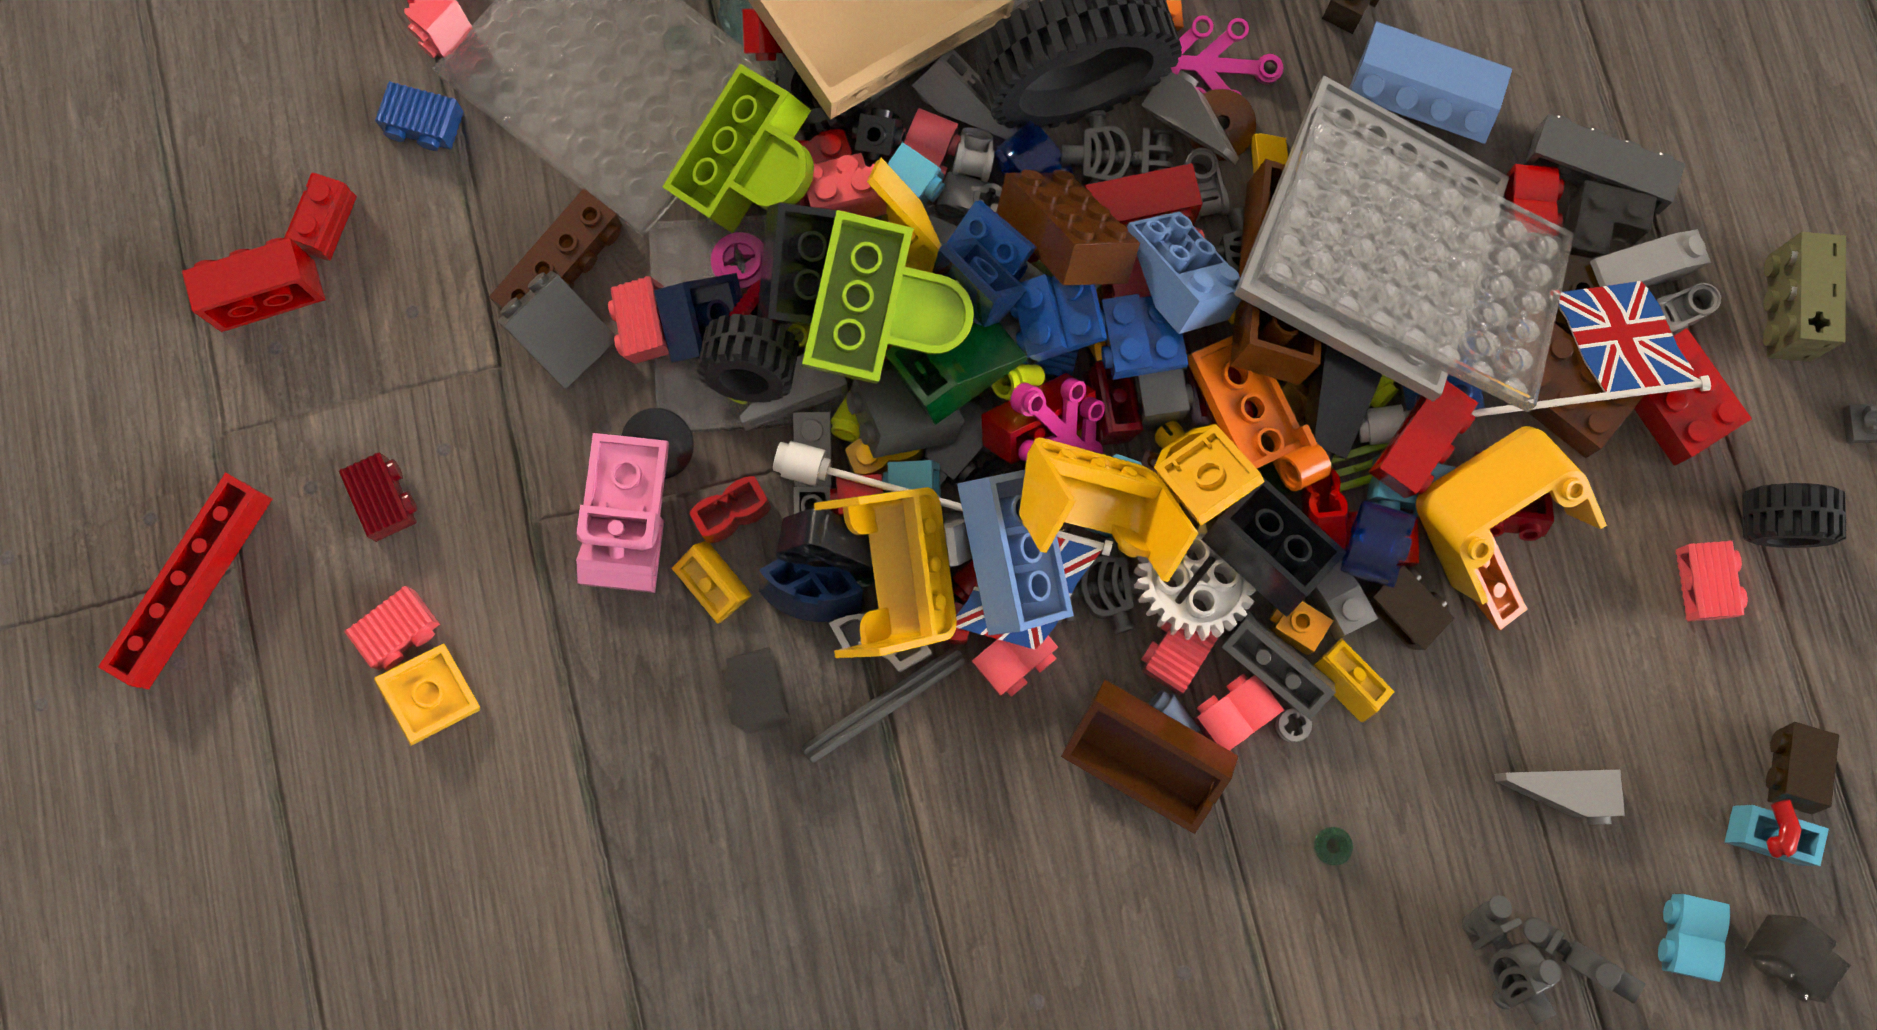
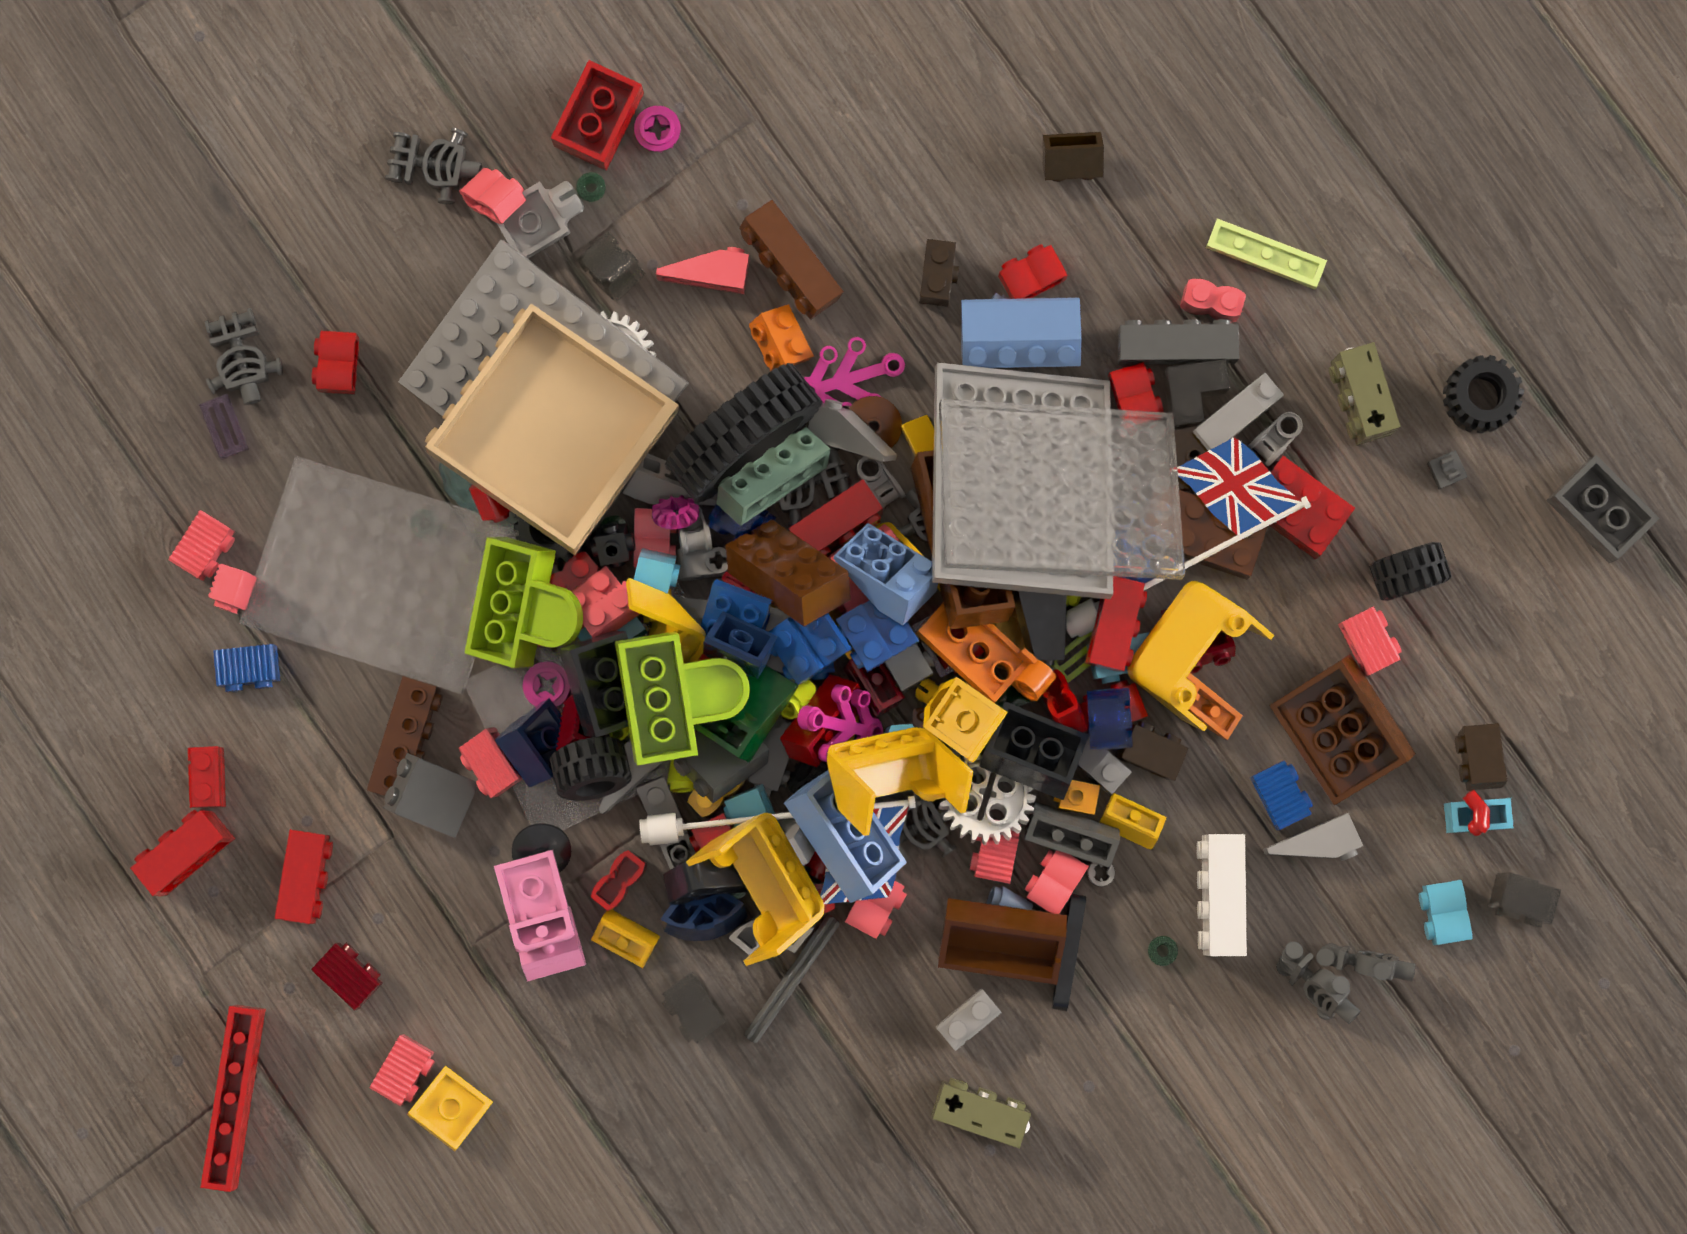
camera: 20 degrees left, 5 degrees up
(378, 367) = (303, 877): none -> red brick
(962, 124) = (665, 517): none -> dark pink gear
(1048, 953) = (982, 1113): none -> olive piece
(1072, 834) = (968, 1019): none -> light grey brick
(1089, 122) = (772, 476): none -> sand green brick
(1199, 843) = (1074, 926): none -> black beam
(1434, 806) = (1222, 895): none -> white piece
(1469, 28) = (1032, 274): none -> red brick
(1543, 718) = (1281, 794): none -> blue brick
(1642, 671) = (1342, 730): none -> reddish brown slope
(1659, 130) = (1204, 298): none -> coral brick
(1738, 108) = (1266, 254): none -> yellowish green plate

